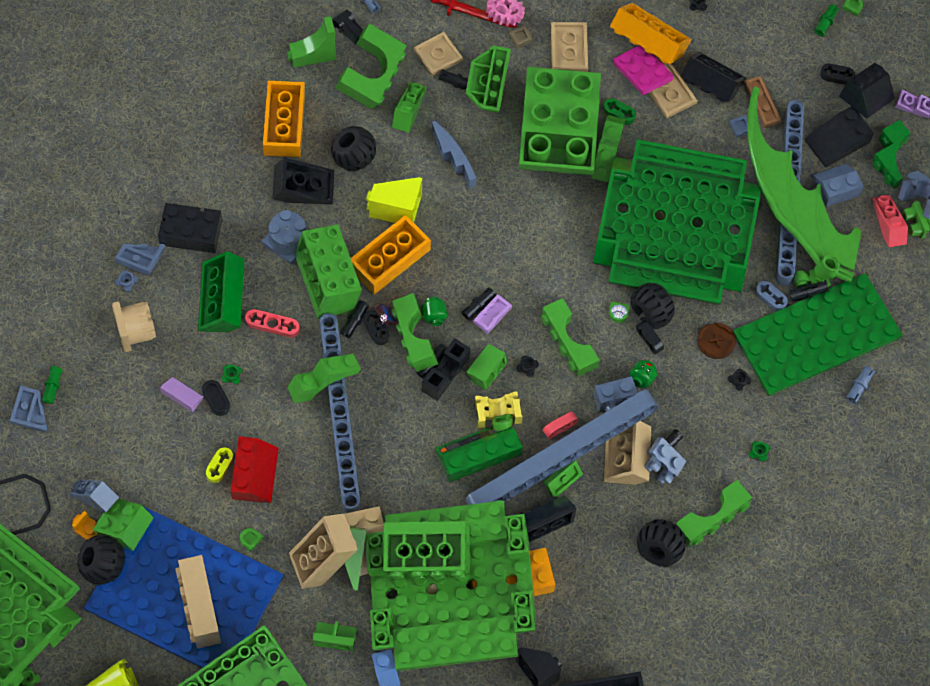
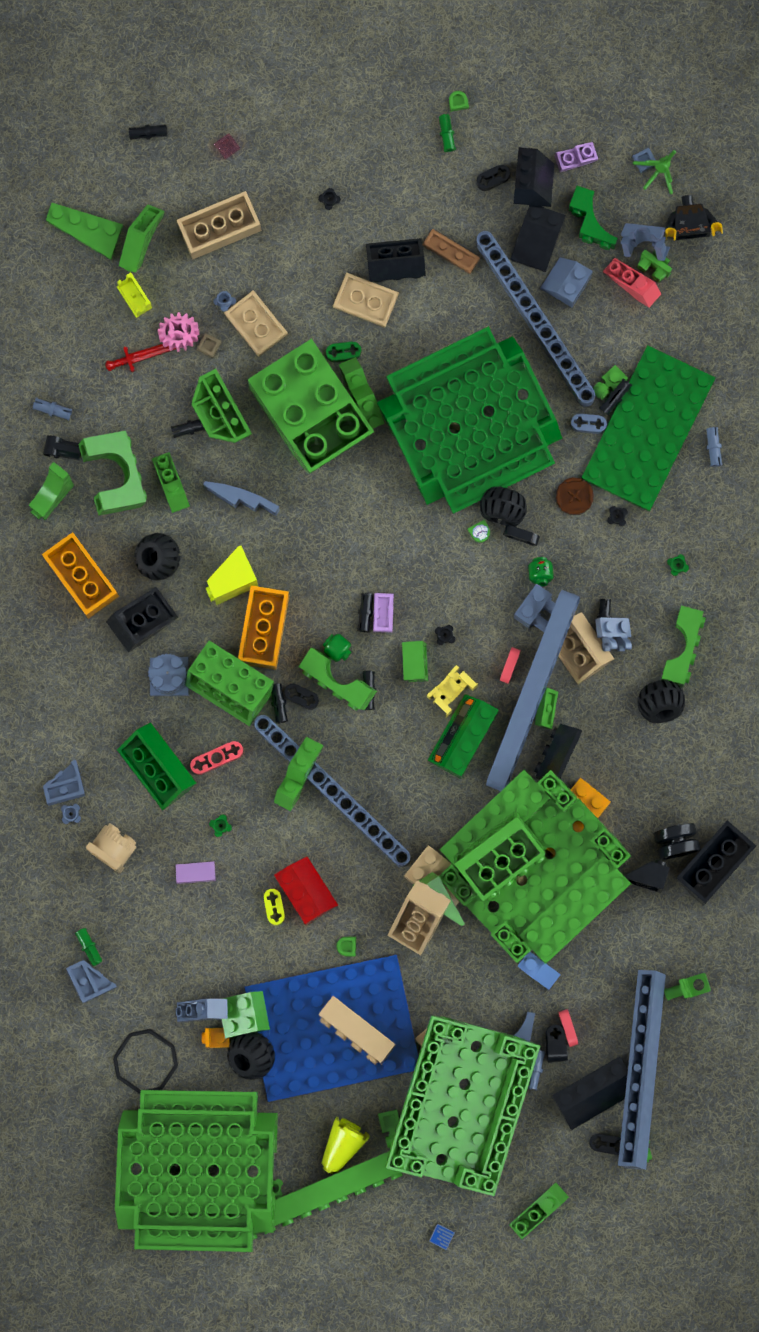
camera: 30 degrees left, 15 degrees up
(190, 228) = (84, 730): black piece -> none
(216, 397) = (224, 854): black tile -> none
(335, 636) = (474, 971): bright green panel -> none
(386, 315) = (301, 681): clear pink tile -> none
(438, 54) = (154, 414): tan tile -> none
(452, 362) = (386, 690): black arch -> none
(502, 422) = (464, 699): bright green tile -> none
(558, 14) = (224, 296): none -> sand blue plate
(580, 357) = (481, 596): bright green arch -> none
(584, 657) = (676, 840): none -> black wheel
(642, 70) = (333, 299): dark pink plate -> none
(650, 33) = (316, 262): light orange brick -> none
(739, 126) = (450, 288): sand blue tile -> none
(799, 209) = (556, 331): bright green animal -> none

